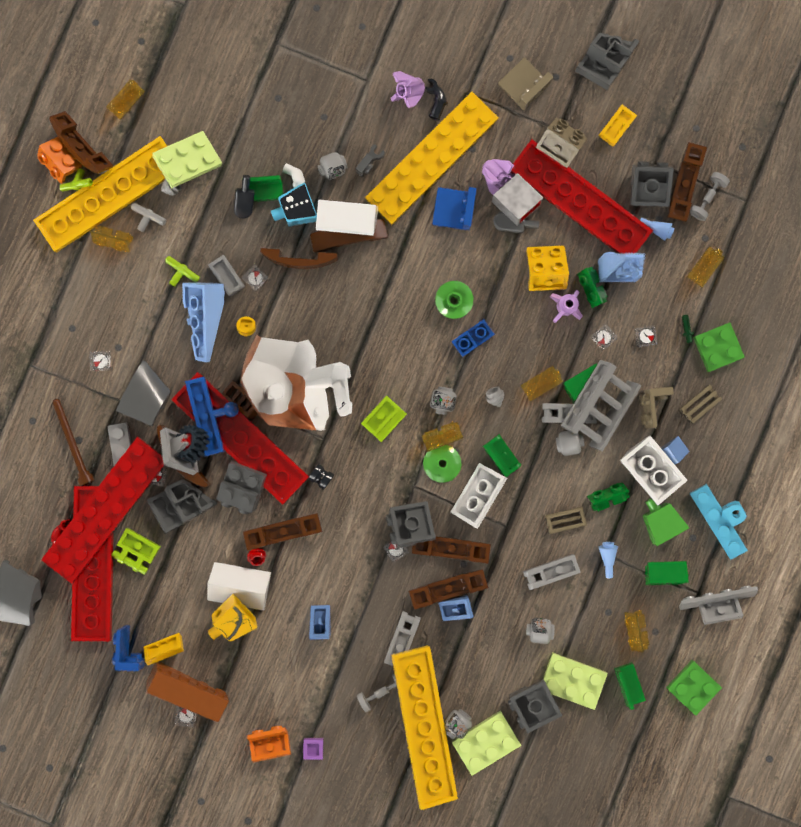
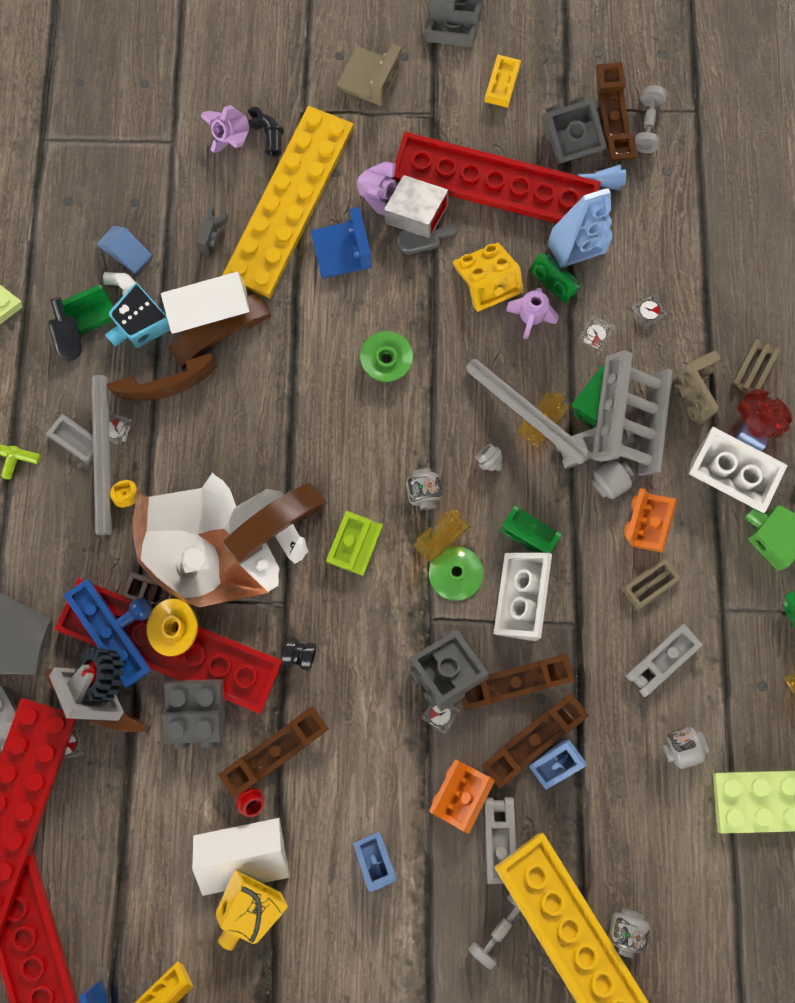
camera: 20 degrees left, 10 degrees down
(139, 546) = (74, 855): lime plate -> none
(179, 505) = (115, 773): dark grey slope -> none
(205, 310) = (59, 489): light blue wedge -> none
(240, 294) = (101, 454): none -> light grey axle
(240, 429) = (162, 627): none -> yellow dish
(305, 150) = (125, 249): none -> medium blue slope
(332, 165) = (166, 252): light grey head -> none
(337, 384) = (273, 520): none -> reddish brown slope
(389, 604) = (461, 796): none -> orange bracket
(473, 338) = (430, 395): blue slope -> none
(486, 743) = (680, 944): yellowish green plate -> none
(531, 376) = (528, 411): none -> light grey axle
(534, 706) = (724, 860): dark grey plate -> none
(561, 142) = (442, 121): dark tan bracket -> none
(582, 480) = (650, 521): none -> orange bracket
(600, 499) = (701, 521): green hinge -> none
(608, 554) = (728, 606): light blue cone -> none
(681, 440) = (764, 414): none -> clear red plate
(687, 329) = (699, 288): dark green piece -> none
(706, 266) = (684, 200): clear yellow hinge -> none
(718, 347) = (745, 290): bright green plate -> none

